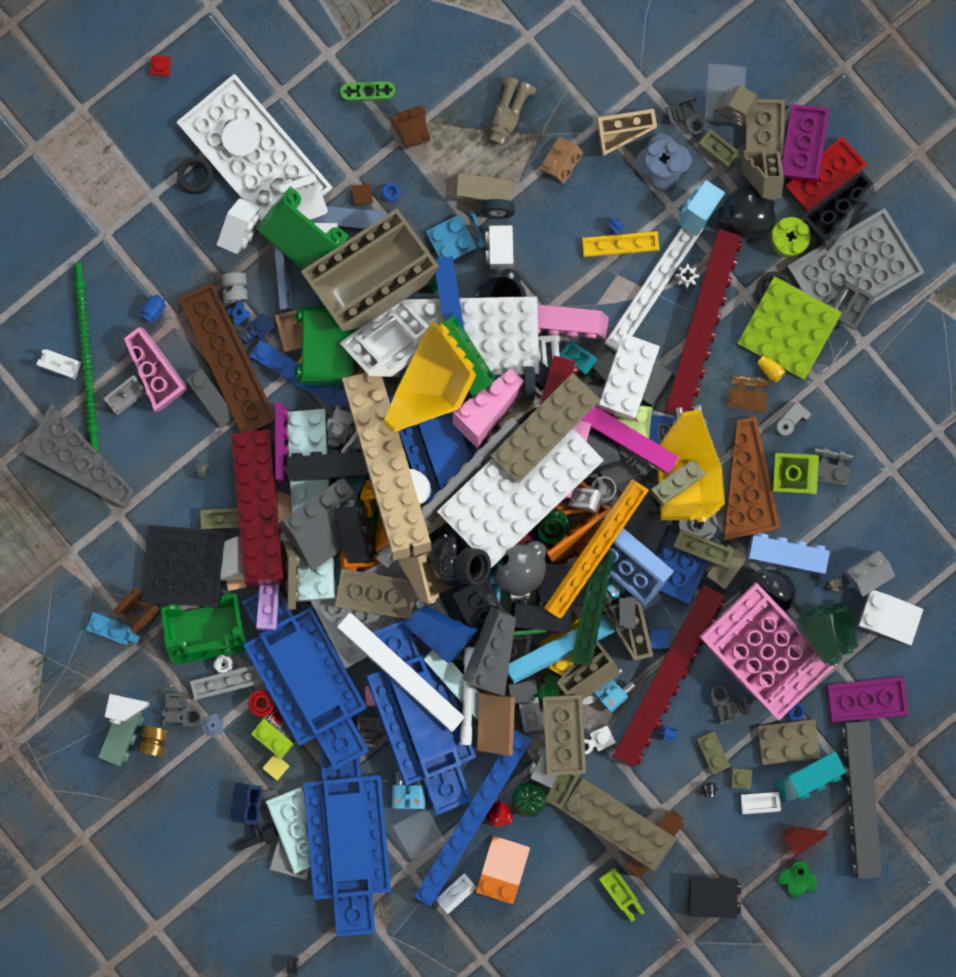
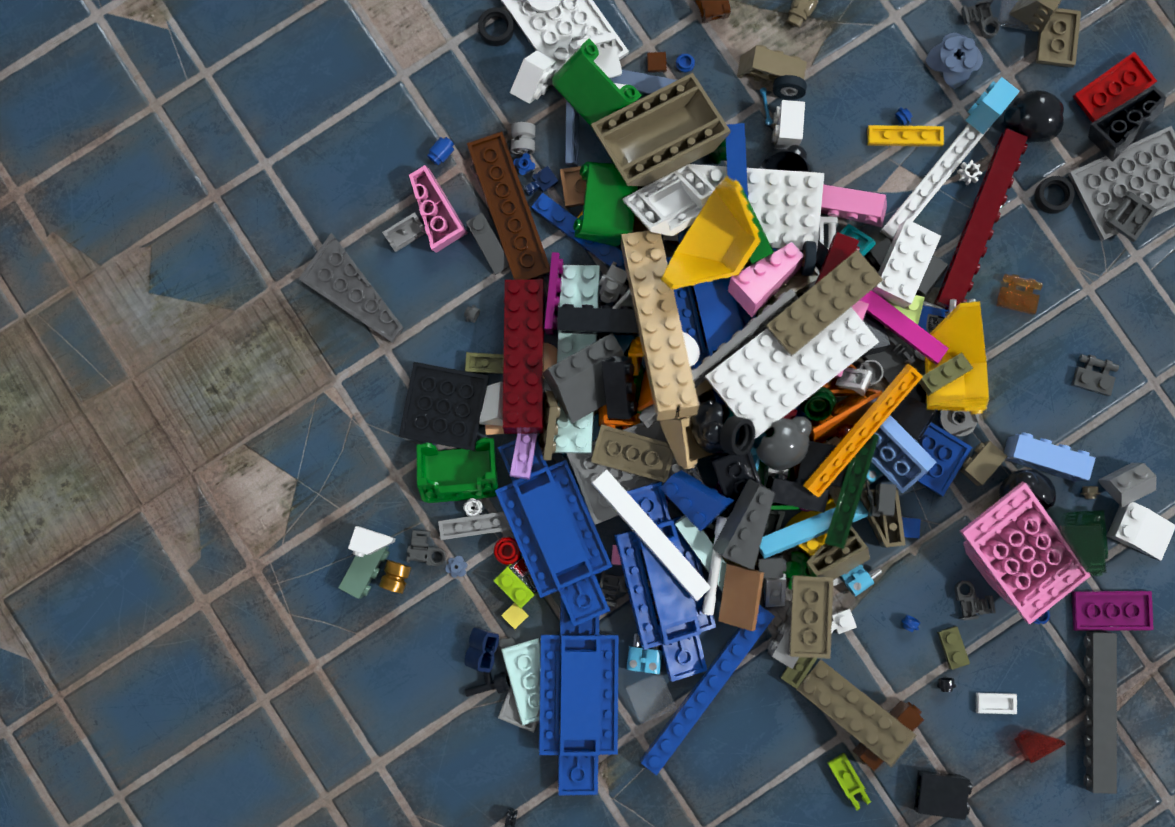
camera: 10 degrees right, 0 degrees up
(59, 364) = (343, 196): white hinge -> none
(79, 286) = (371, 122): green hose -> none
(111, 629) = (366, 461): dark azure hinge -> none
(127, 606) = (385, 438): reddish brown piece -> none
(451, 238) = (741, 110): dark azure plate -> none
(456, 893) = (682, 762): white plate -> none
(499, 815) = (734, 688): red brick -> none
(503, 870) = (731, 744): slope -> none
(528, 799) = (765, 676): dark green piece -> none
(561, 159) = (855, 47): medium nougat bracket -> none
(623, 128) = (920, 21): tan wedge -> none
(668, 676) = (916, 566): dark red brick -> none
(704, 549) = (966, 442): olive plate -> none
(719, 148) = (1011, 52): olive plate -> none
(741, 778) = (979, 676): olive plate -> none
(750, 497) = (1013, 392): dark orange wing -> none
(764, 172) = (1058, 77): dark tan wedge -> none
(771, 369) = (1044, 272): yellow cone -> none
(786, 424) = (1056, 327): light grey leg -> none
(788, 742) = (1030, 644): dark tan plate -> none
(789, 327) = (1068, 232): lime plate -> none
(796, 473) = (1063, 377): lime brick -> none
(798, 230) = (1075, 135): lime brick -> none
(798, 881) = (1026, 787): green plate -> none
(805, 142) = (1098, 54): magenta plate -> none
(811, 778) = (1051, 685): teal wedge -> none

